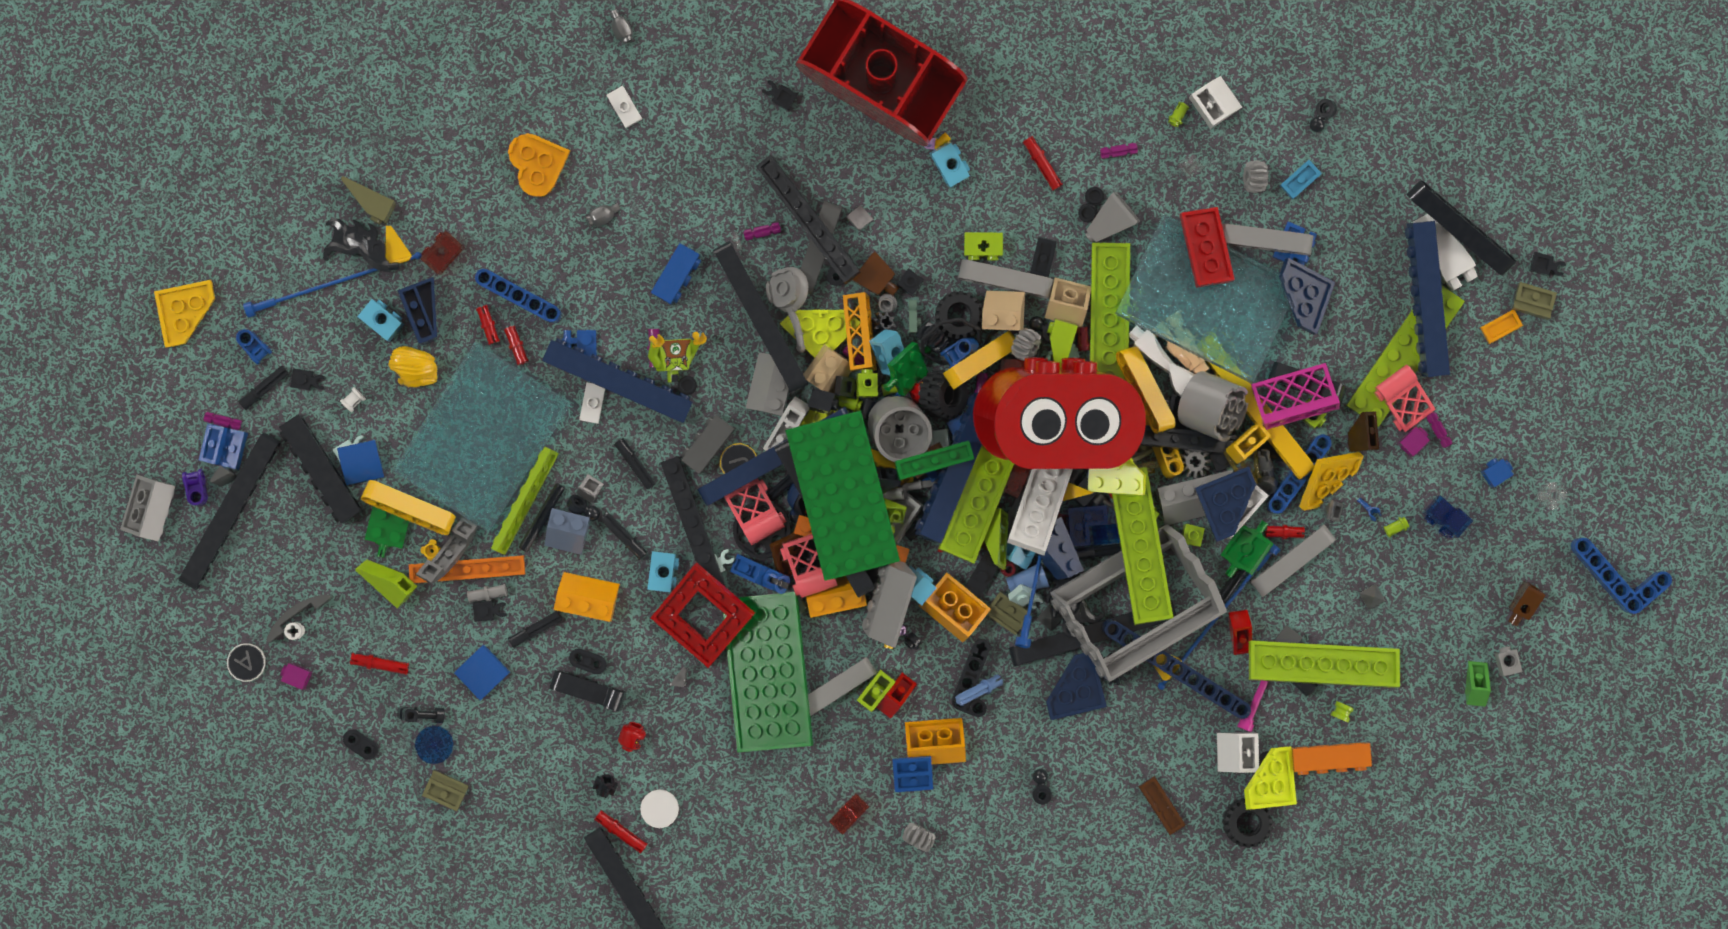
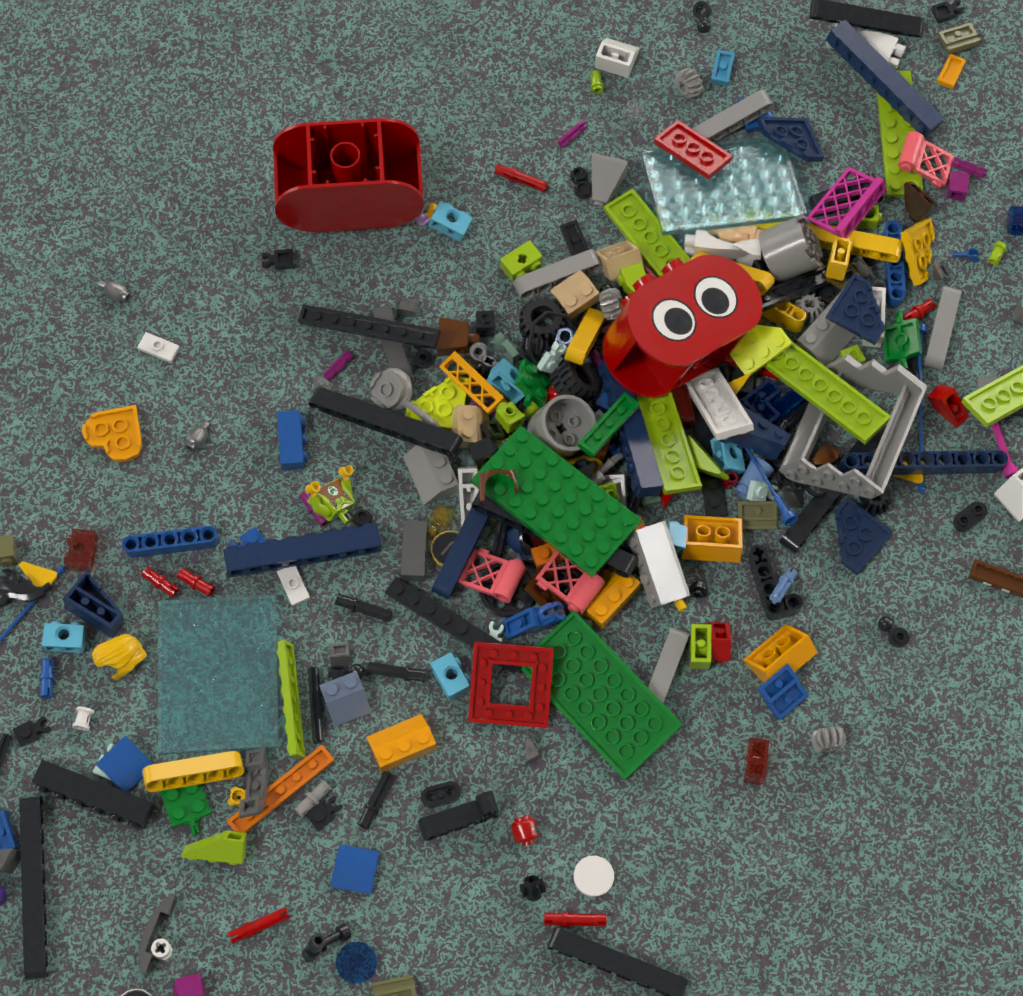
camera: 40 degrees left, 20 degrees down
(346, 344) = (46, 678): none -> blue pin
(750, 429) = (439, 518): none -> clear yellow plate
(803, 439) = (483, 477): none -> reddish brown helmet
(937, 360) = (552, 359): none -> light aqua plate
(1101, 606) = (826, 454): none -> reddish brown piece
(1181, 737) = (971, 517): none -> black plate

